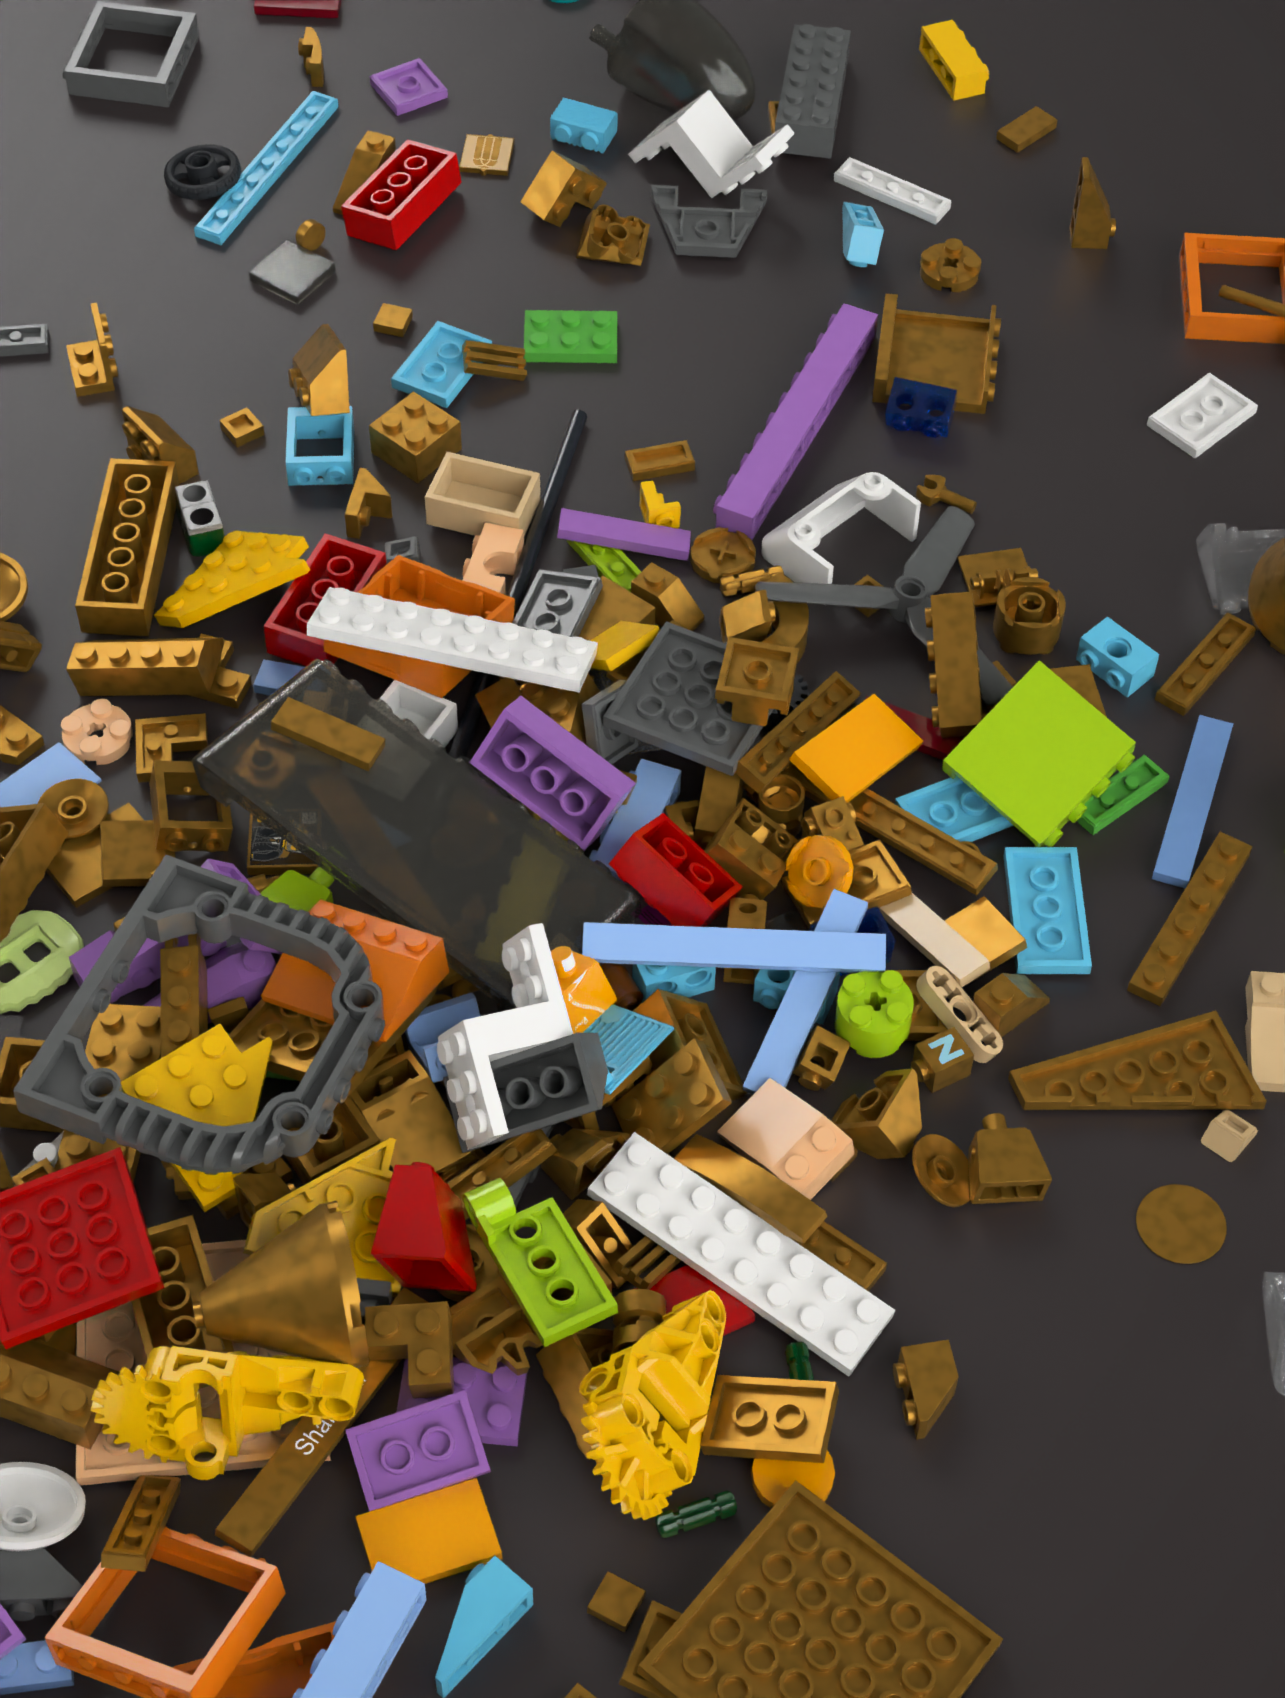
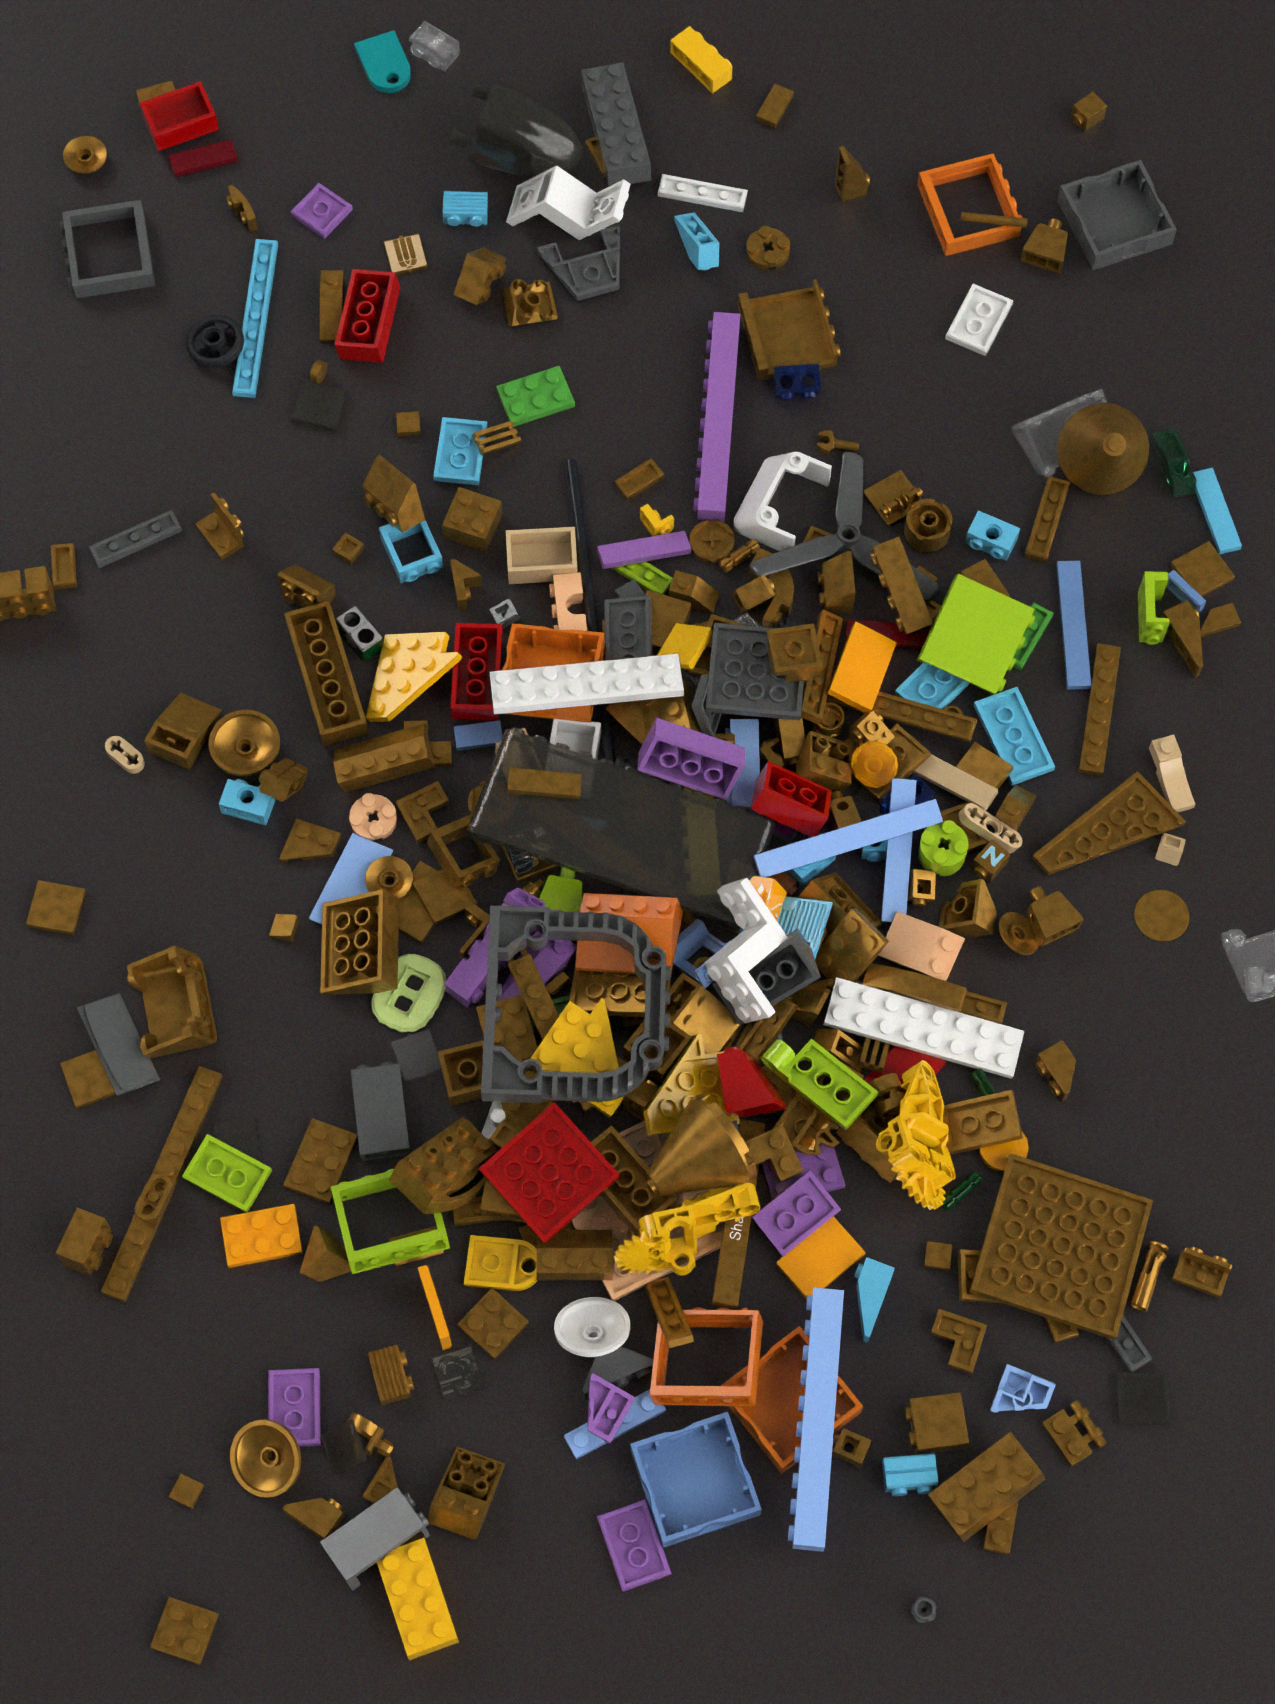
camera: 20 degrees left, 15 degrees up
(870, 647) = (837, 584): none -> pearl gold slope

